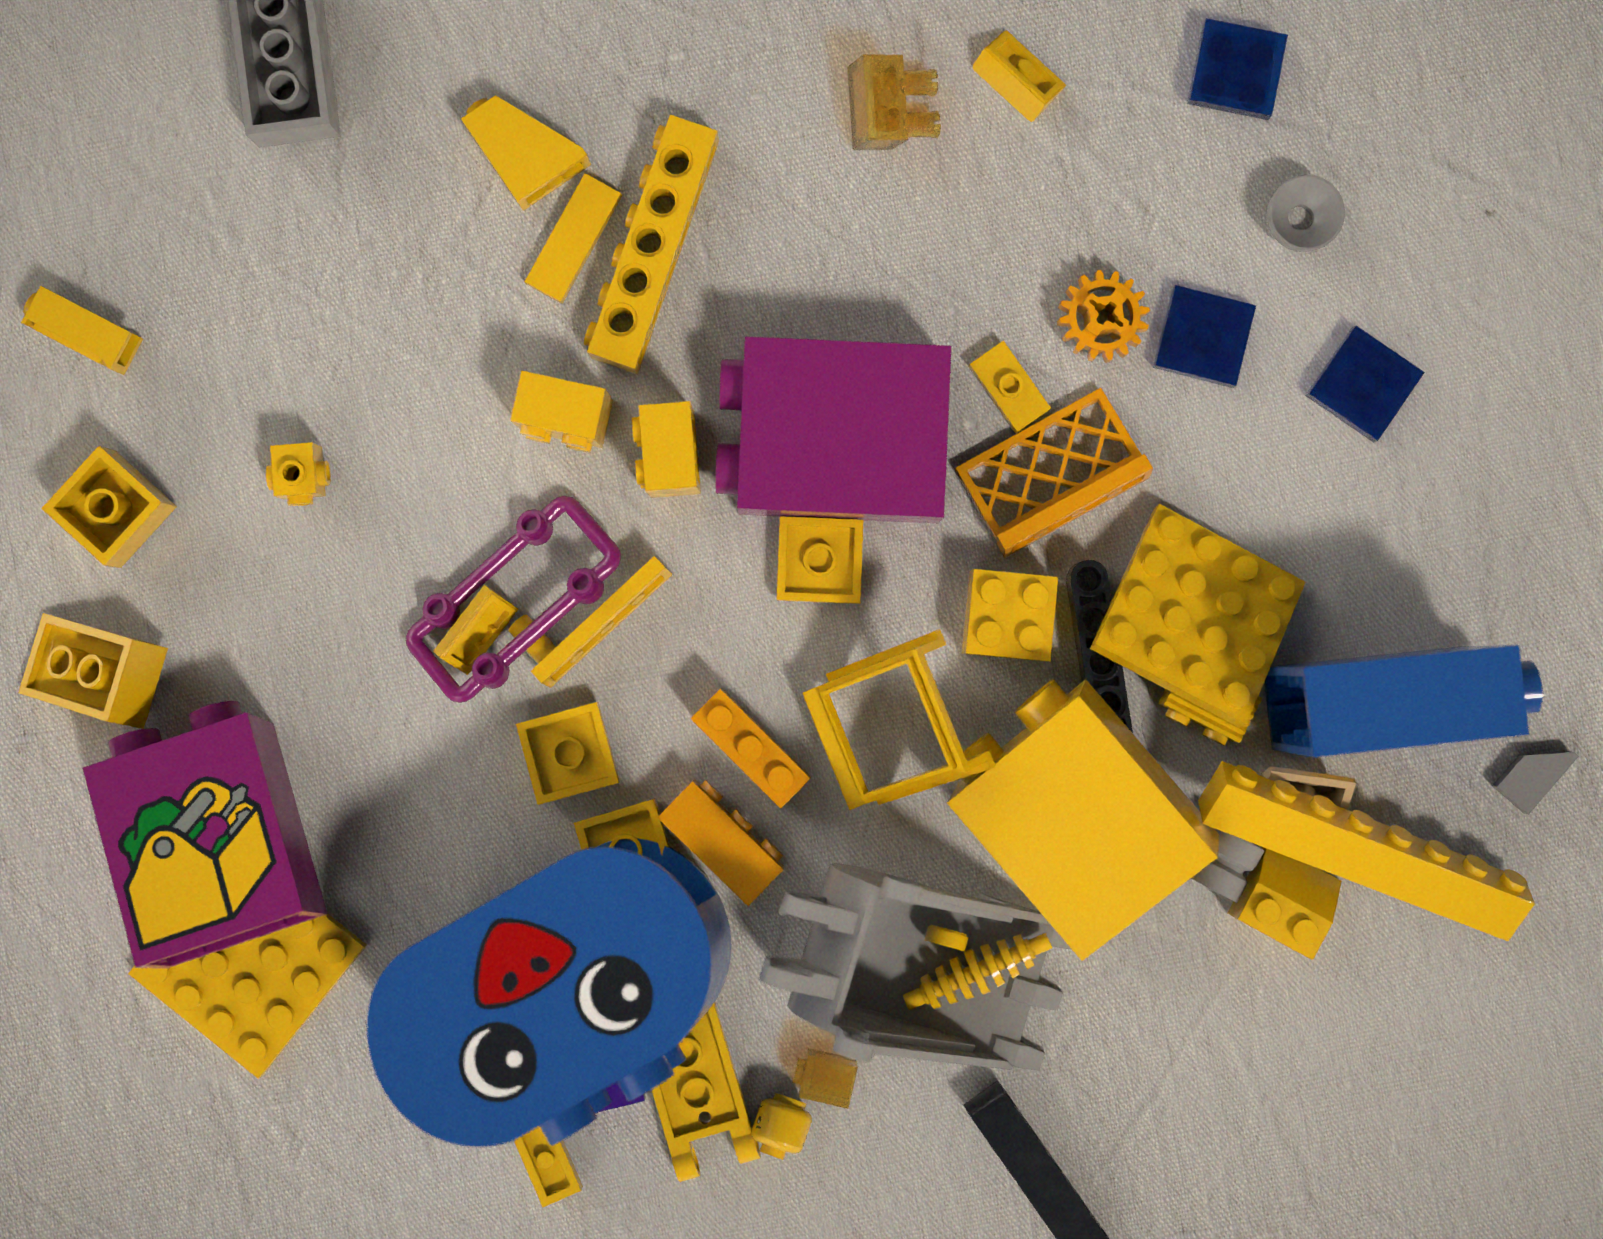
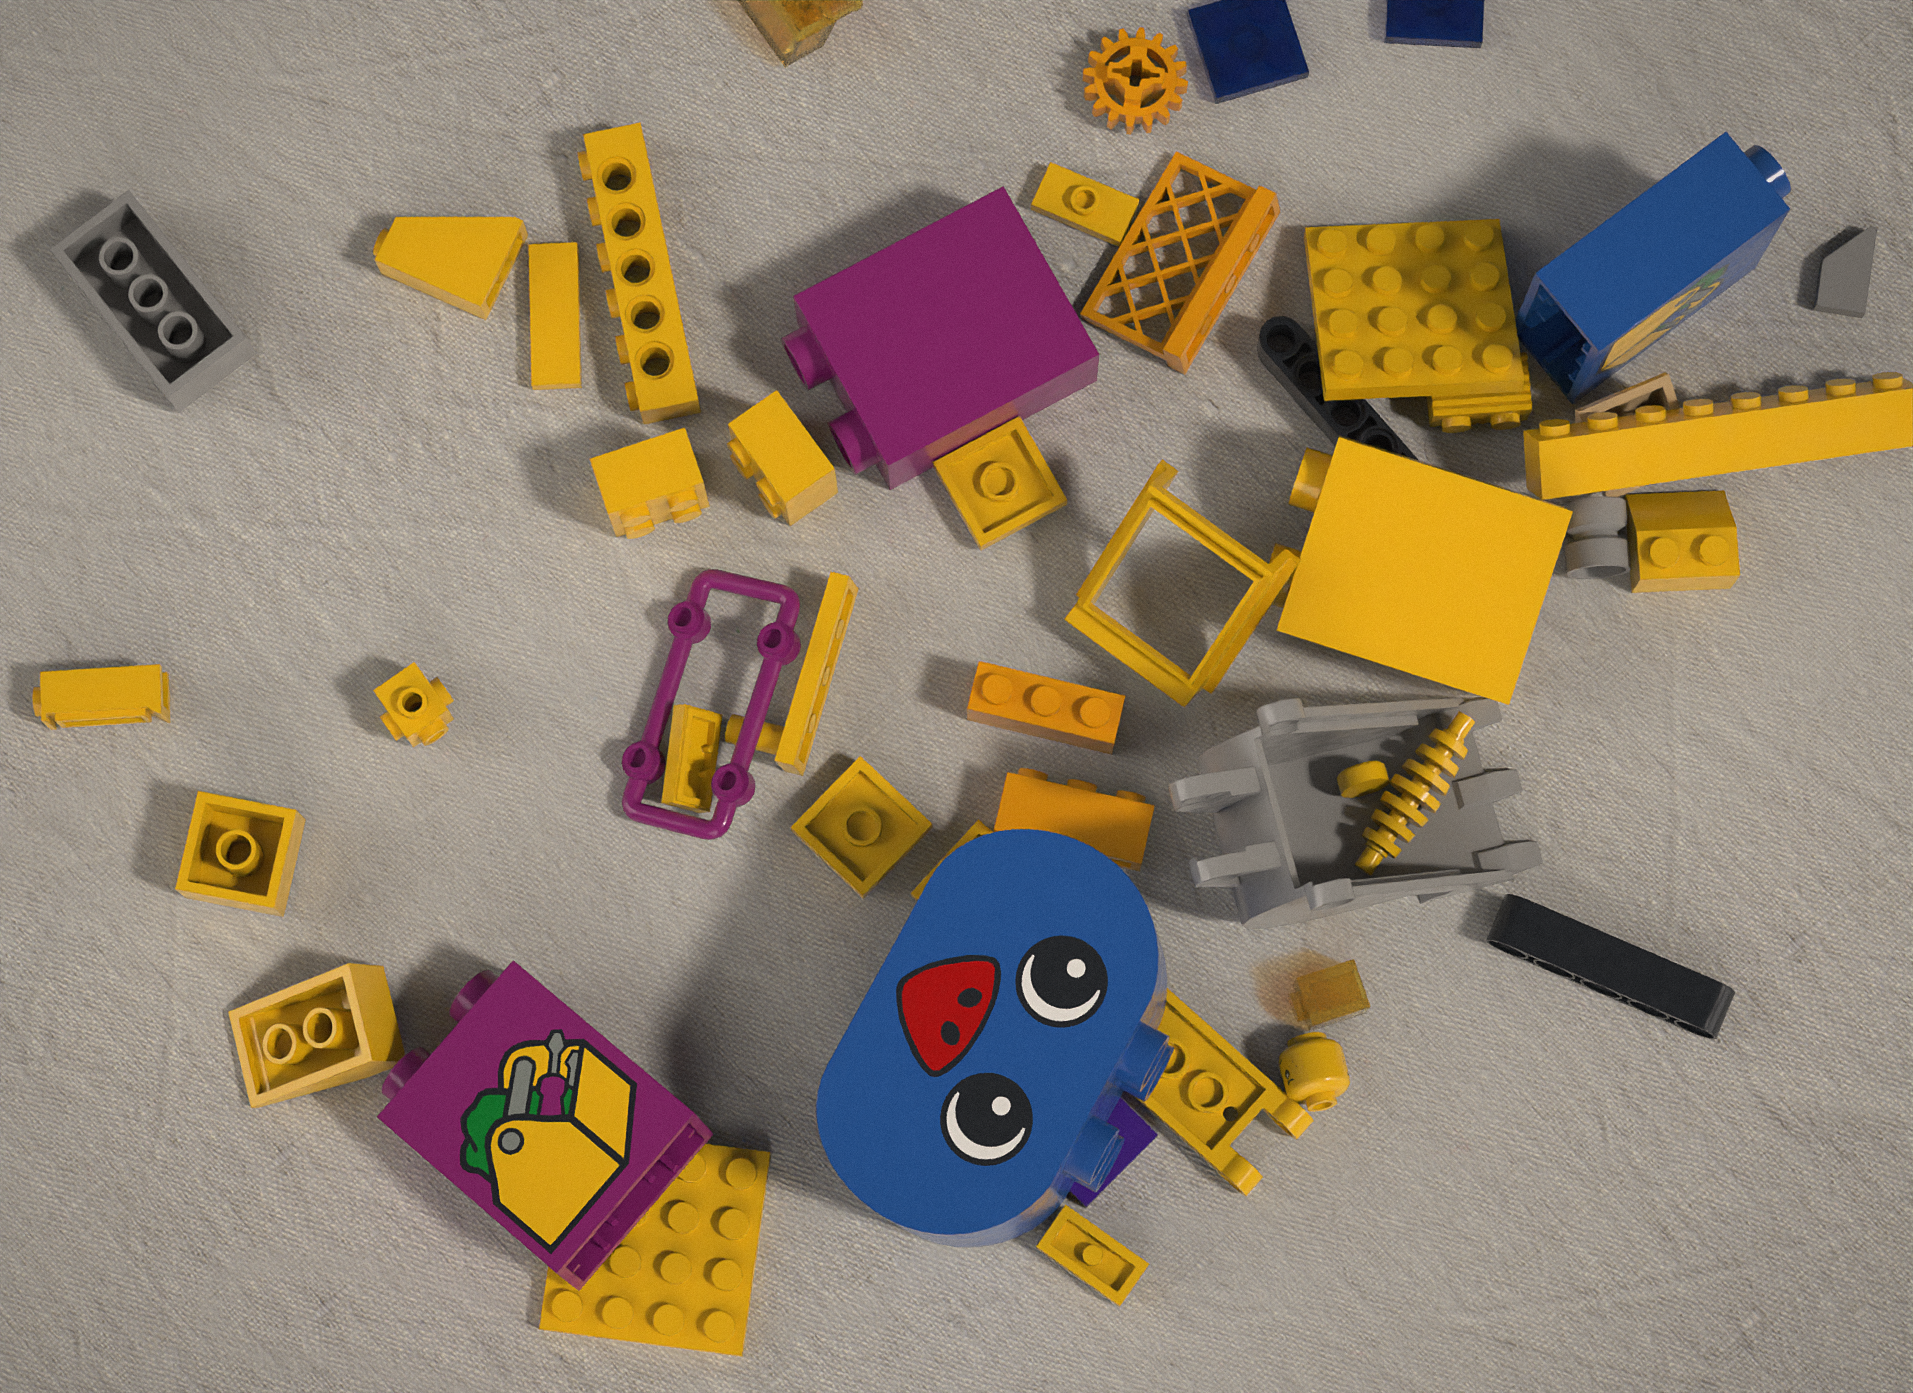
camera: 25 degrees left, 10 degrees down
(1010, 615) = (1225, 423): yellow brick -> none

